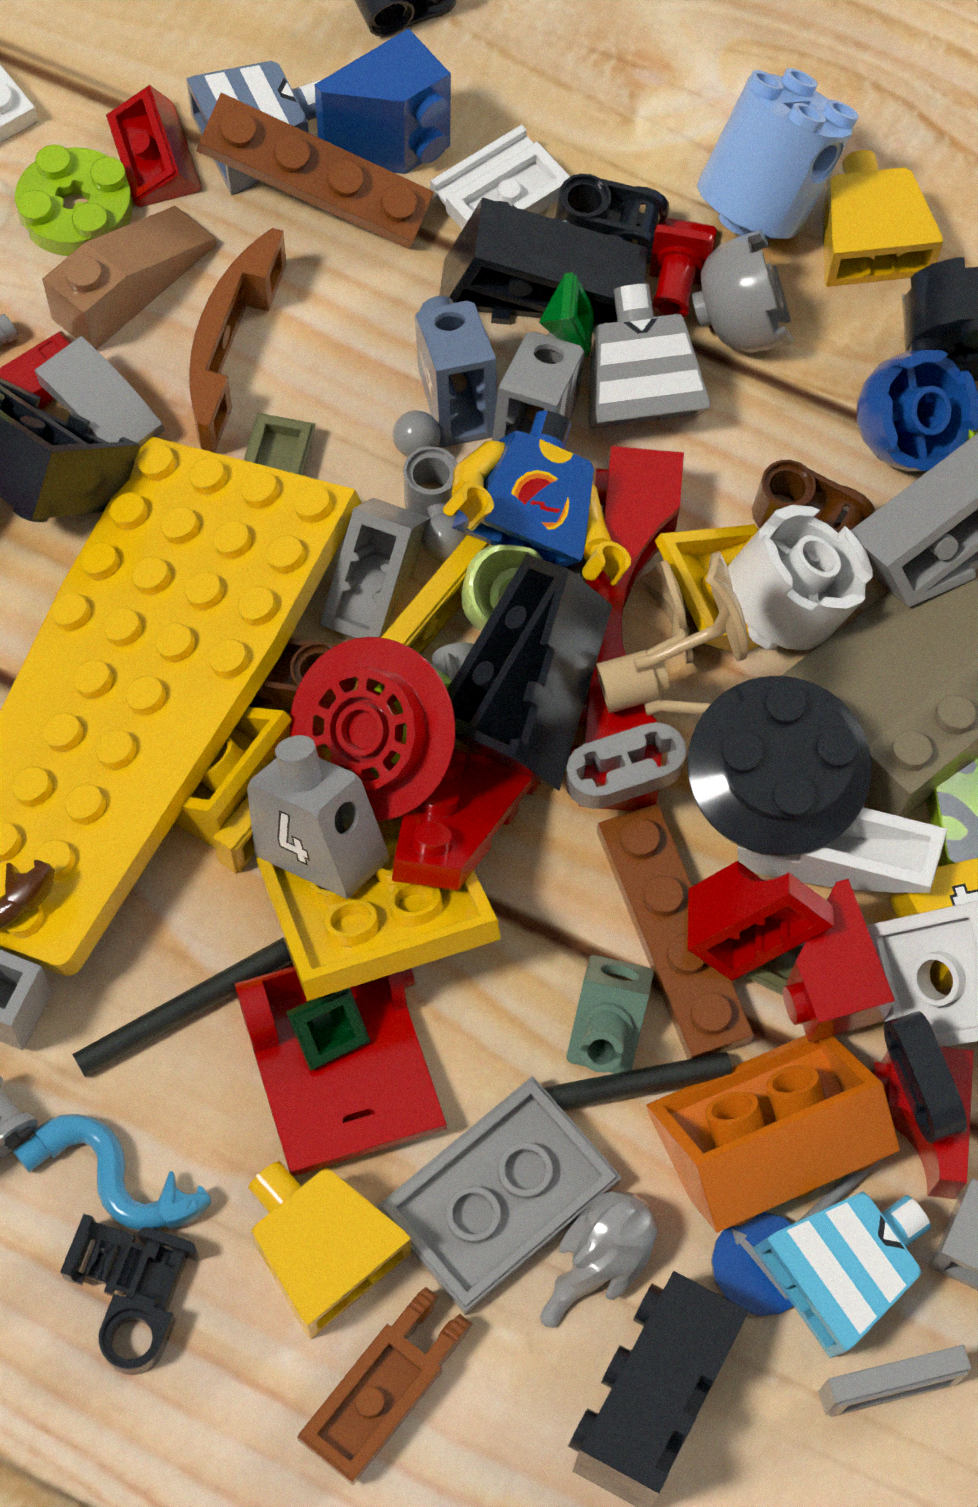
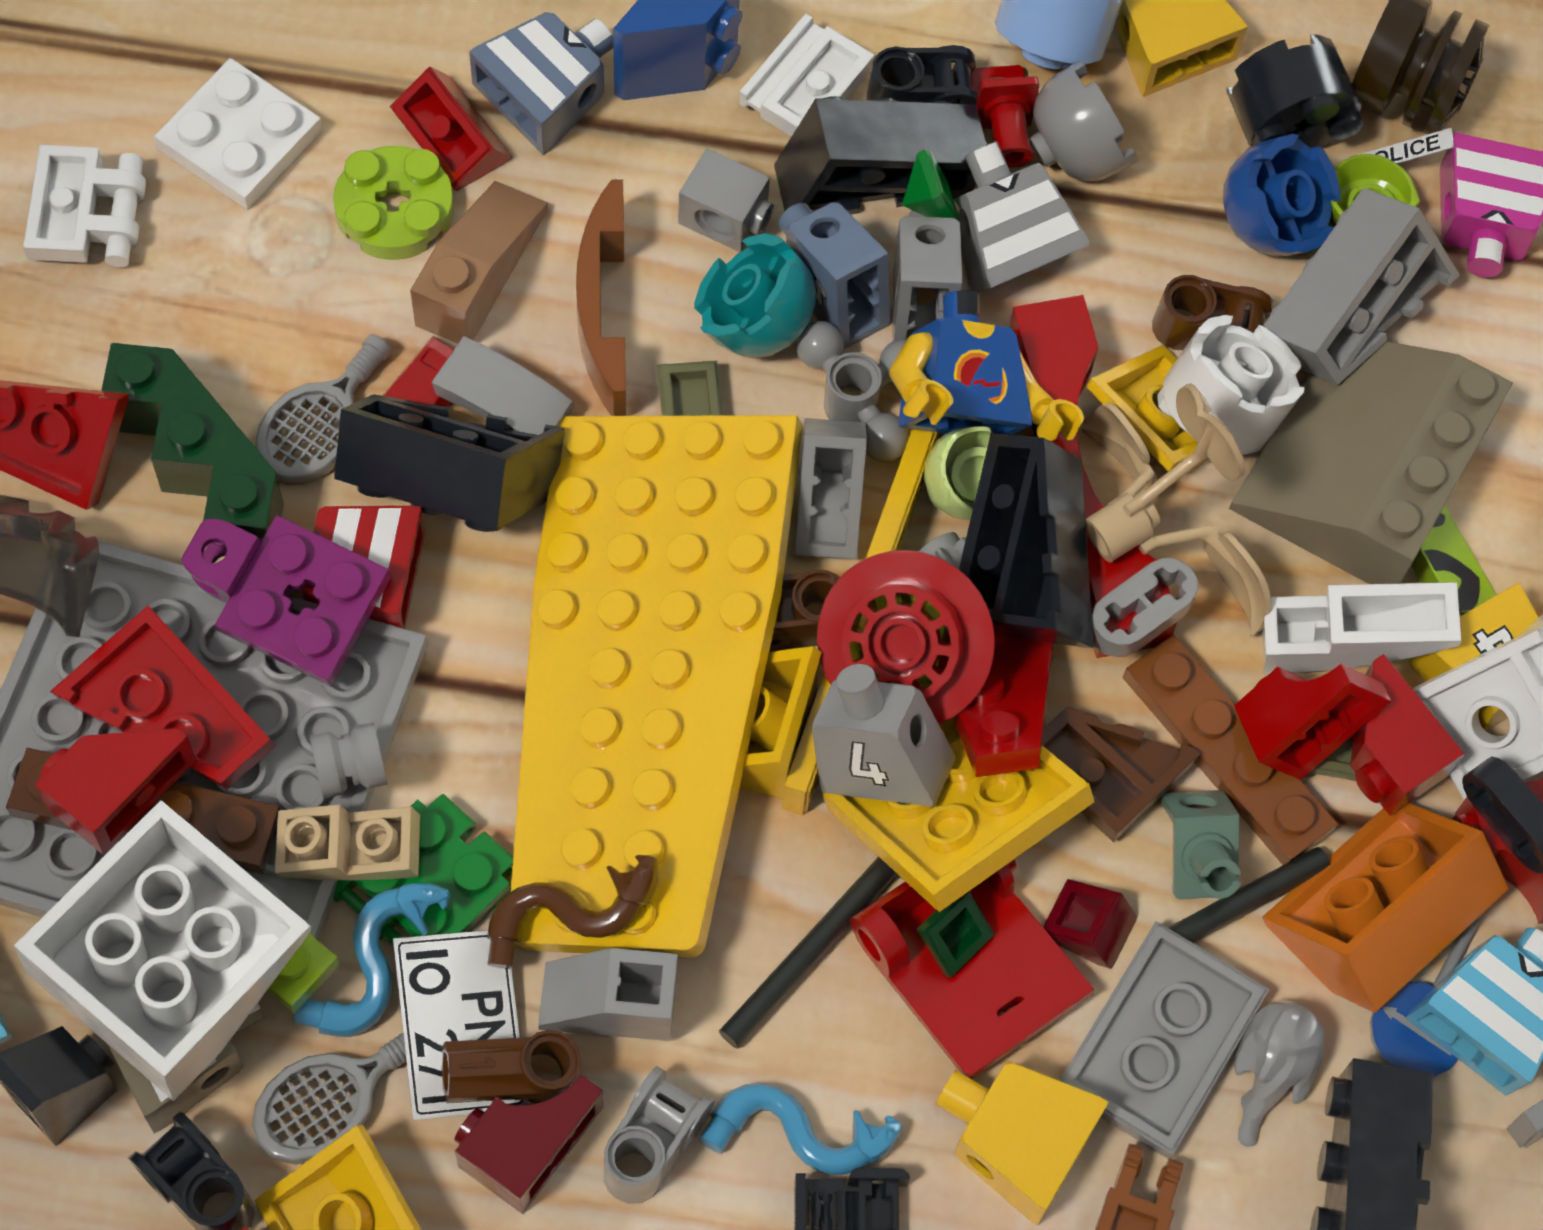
camera: 20 degrees left, 0 degrees up
(314, 170) = (627, 110): dark orange plate -> none
(369, 376) = (757, 298): none -> teal cylinder
(378, 277) = (725, 200): none -> light grey brick
(473, 1059) = (1091, 922): none -> dark red slope
(546, 914) = (1119, 765): none -> reddish brown wing
(779, 766) = (1287, 567): black piece -> none

